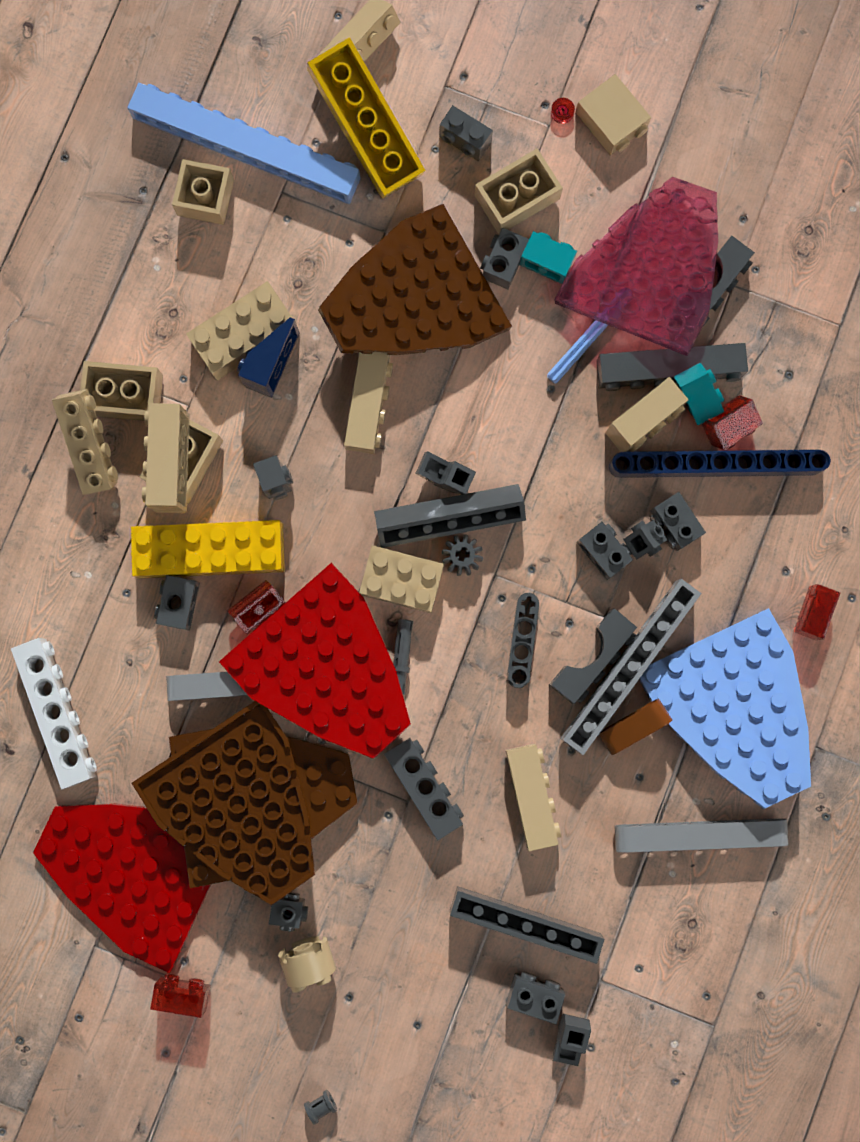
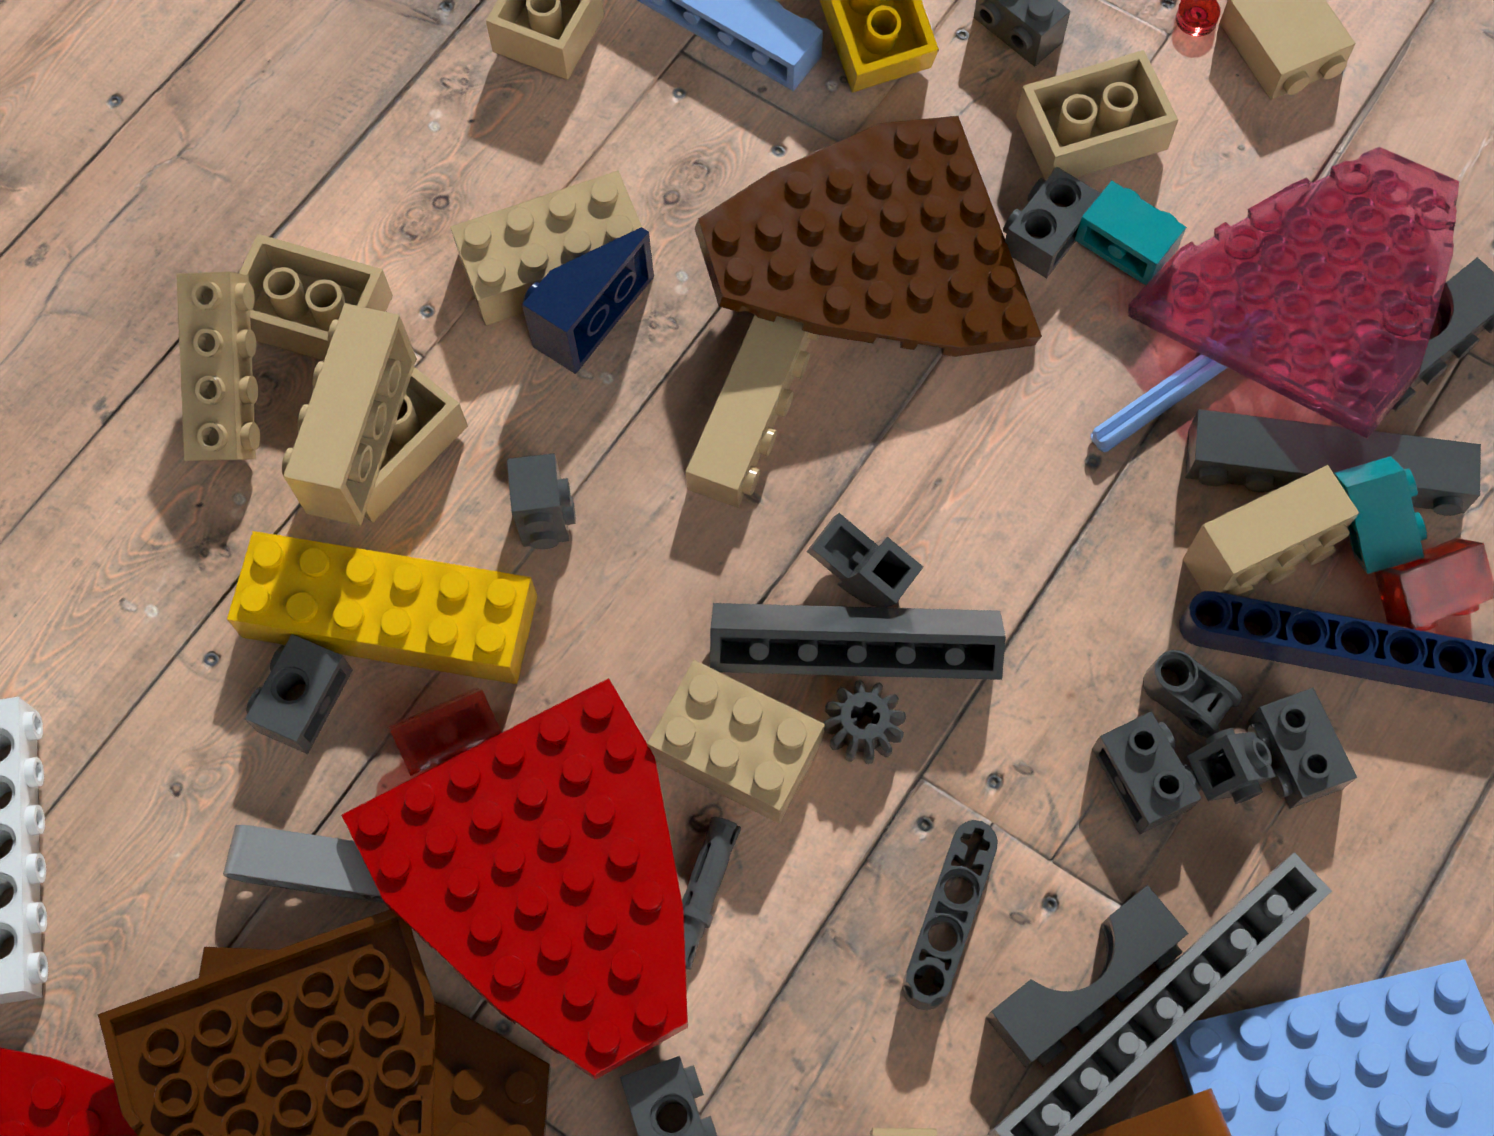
camera: 15 degrees right, 15 degrees down
(624, 506) = (1194, 694): none -> dark grey piece

